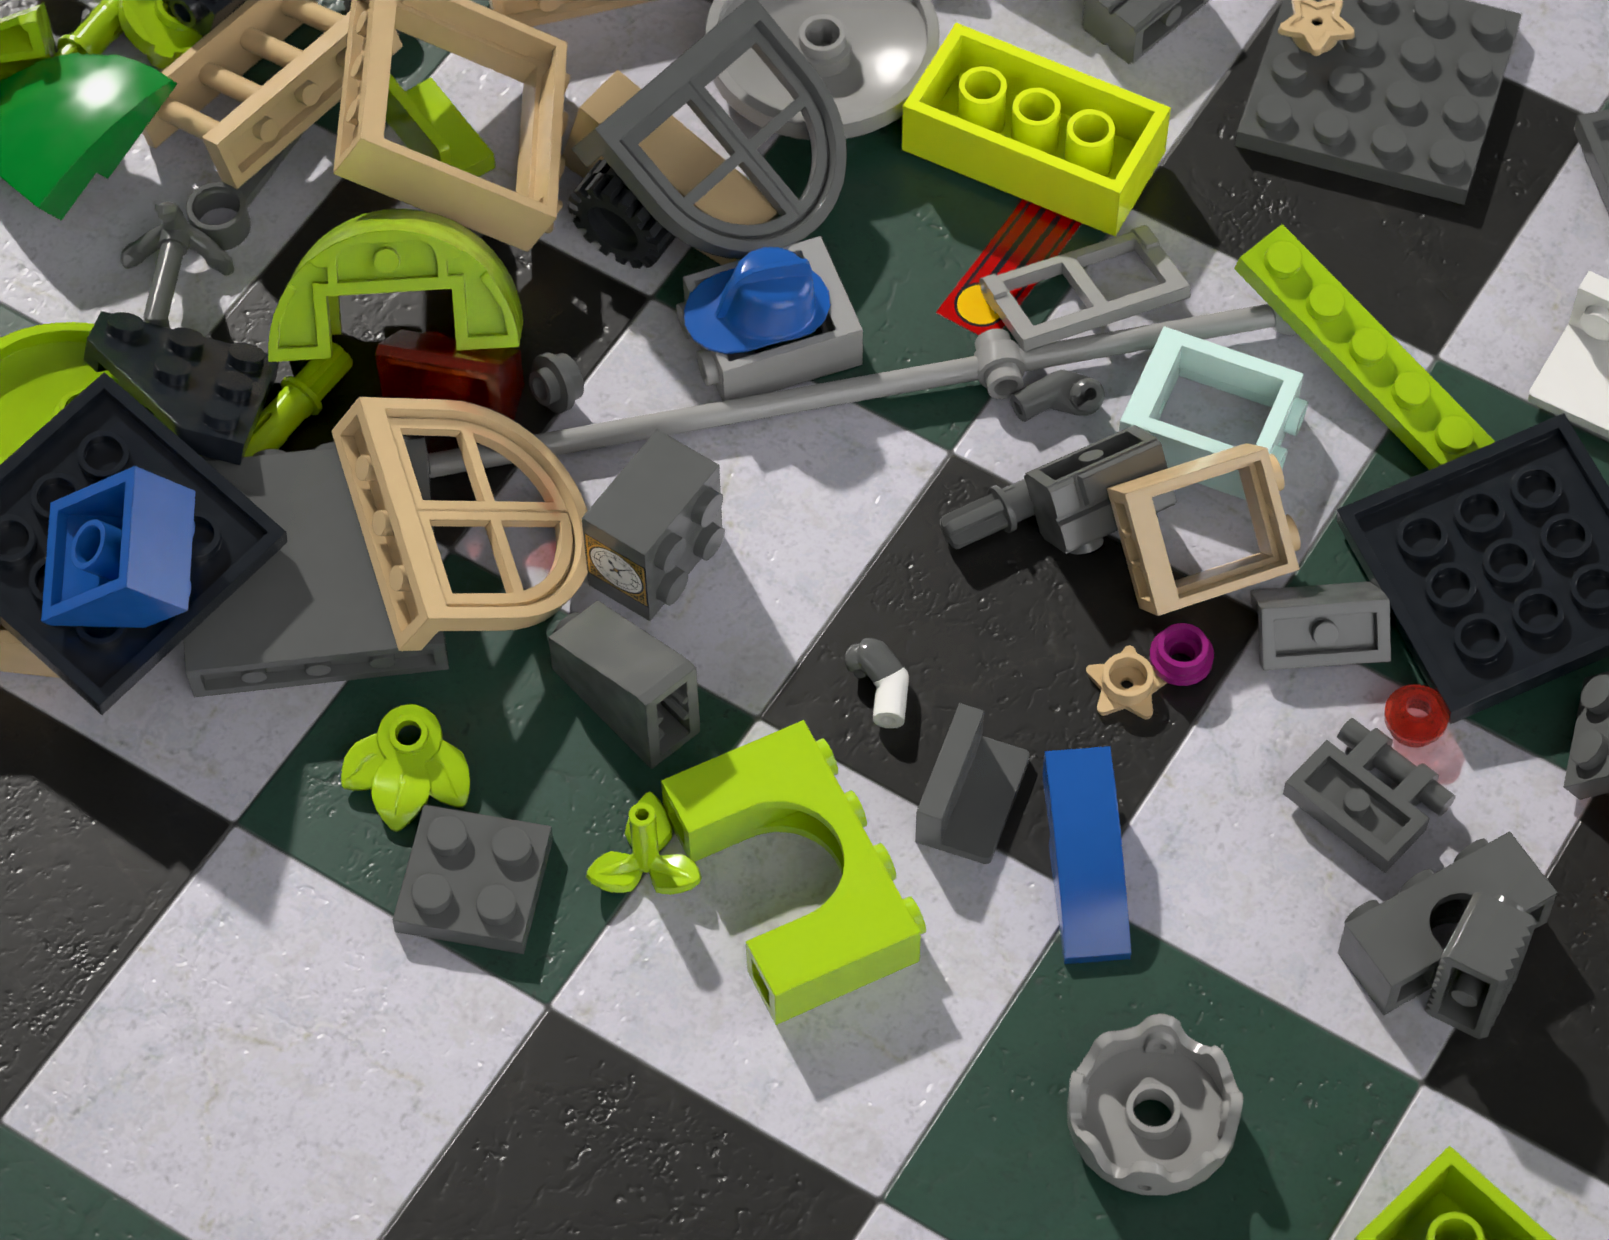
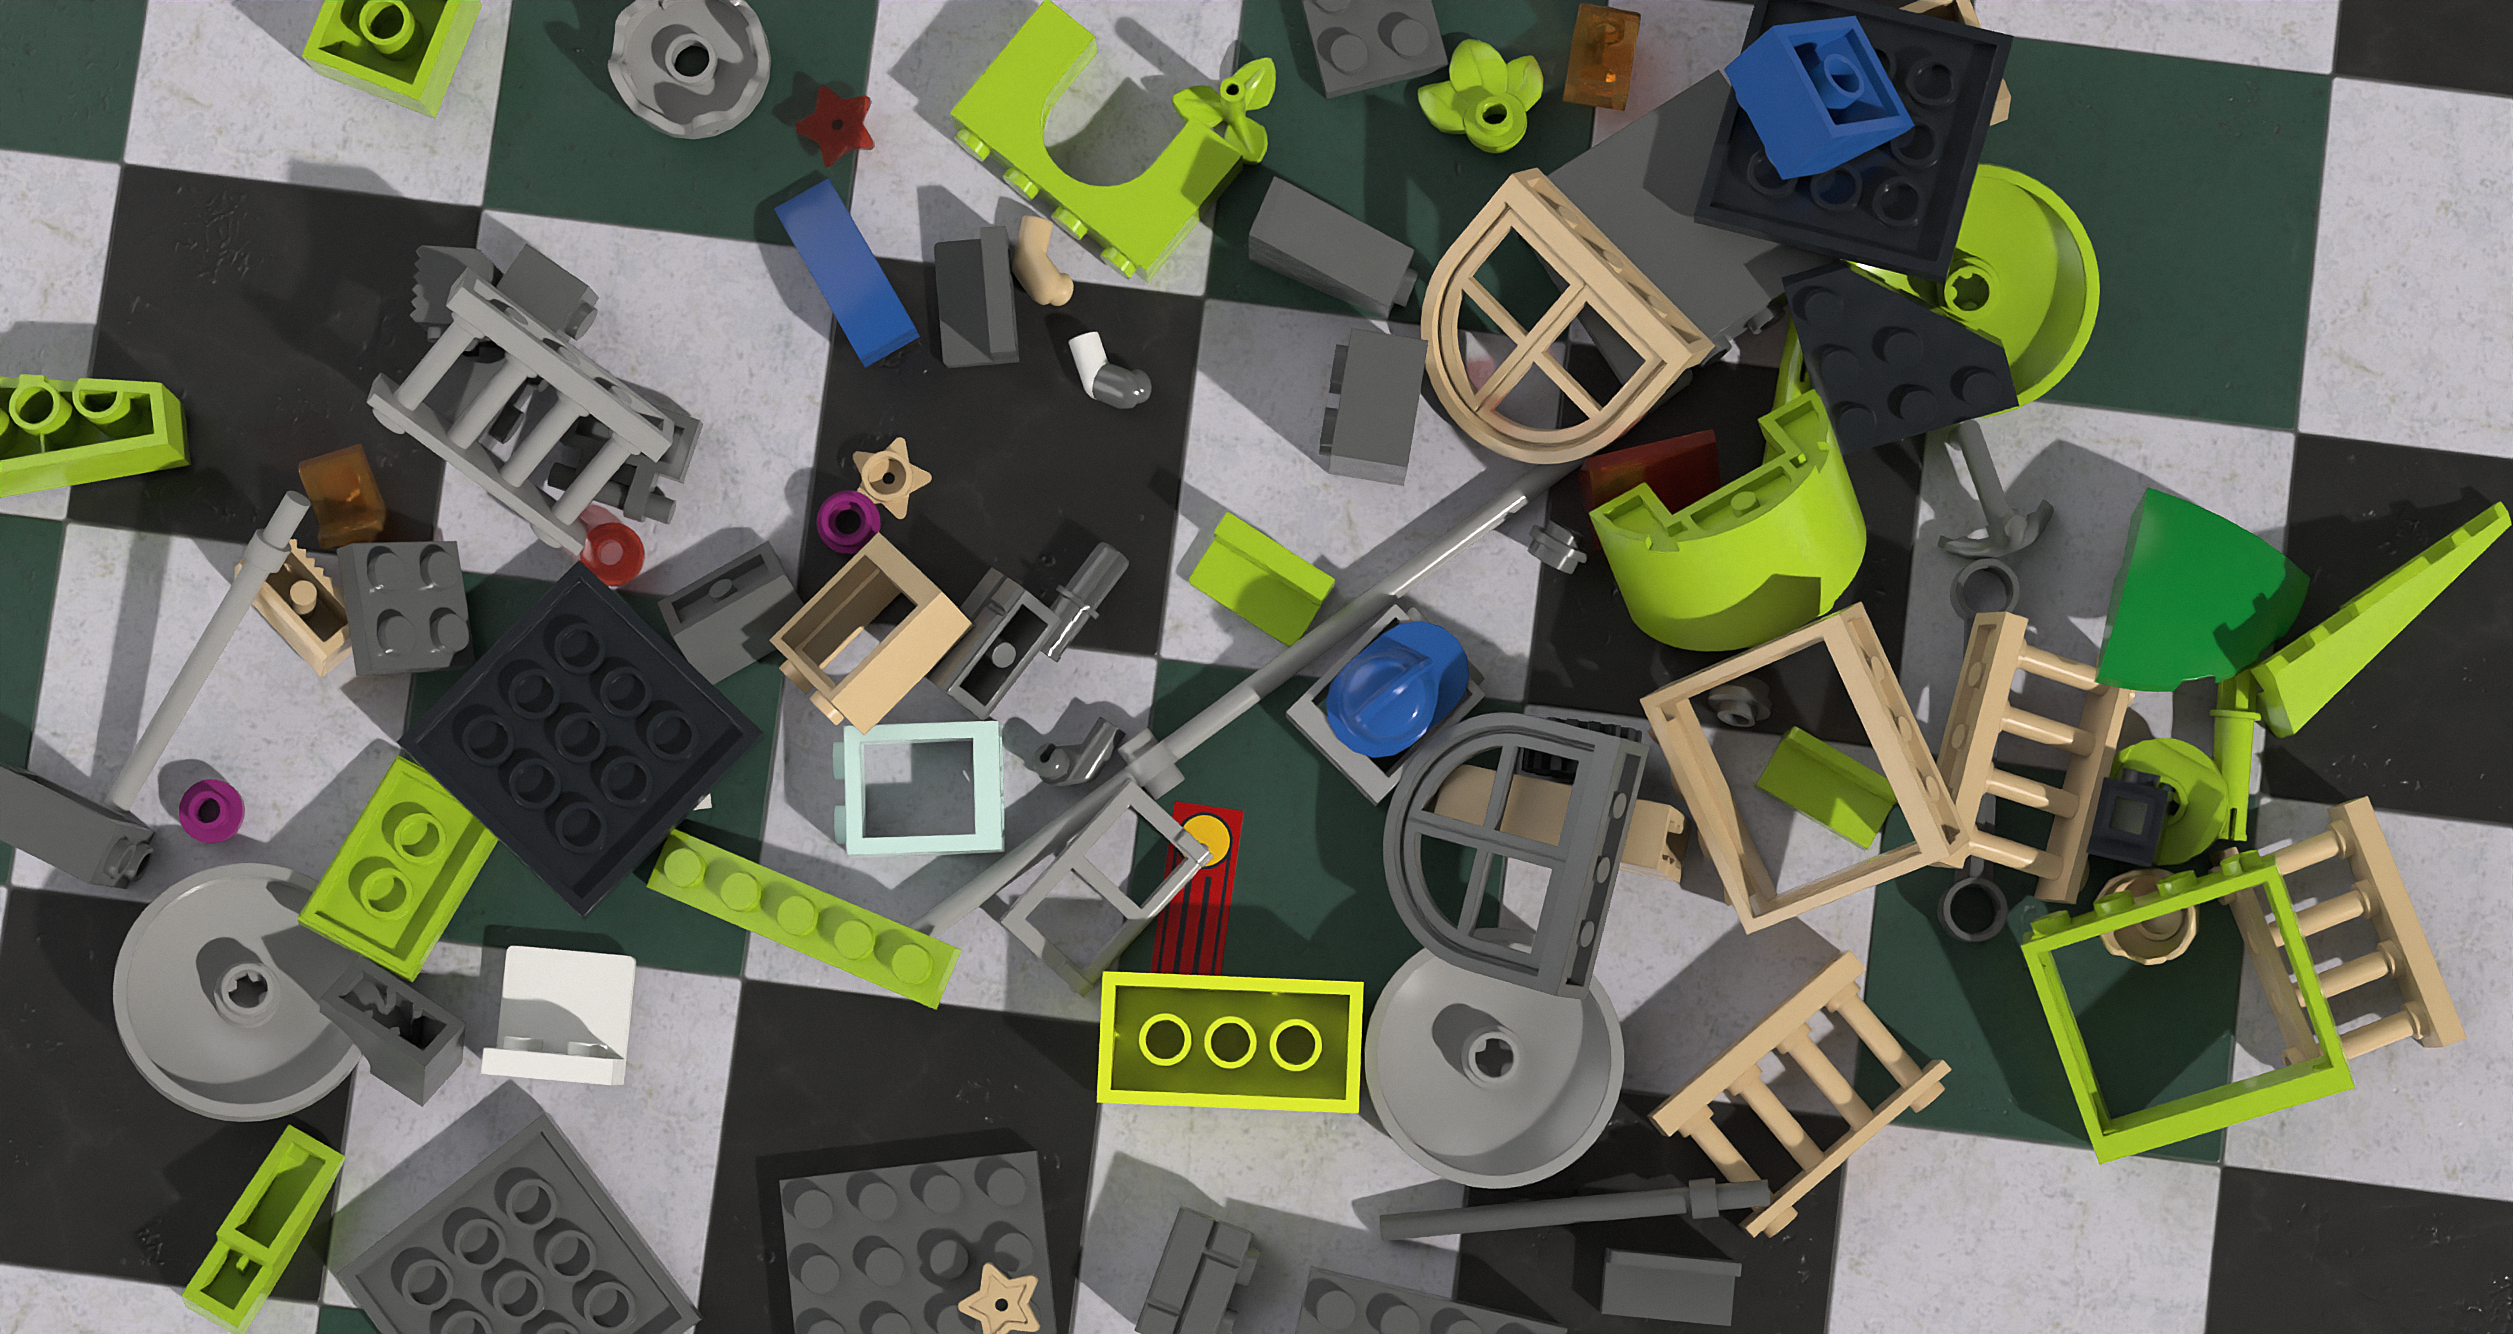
camera: 155 degrees right, 25 degrees up
(284, 743) = (1601, 56): none -> clear orange bracket
(826, 464) = (1261, 581): none -> lime panel
(905, 789) = (1035, 269): none -> tan arm
(1036, 1015) = (837, 142): none -> clear red plate
(1442, 855) = (529, 352): none -> light grey fence

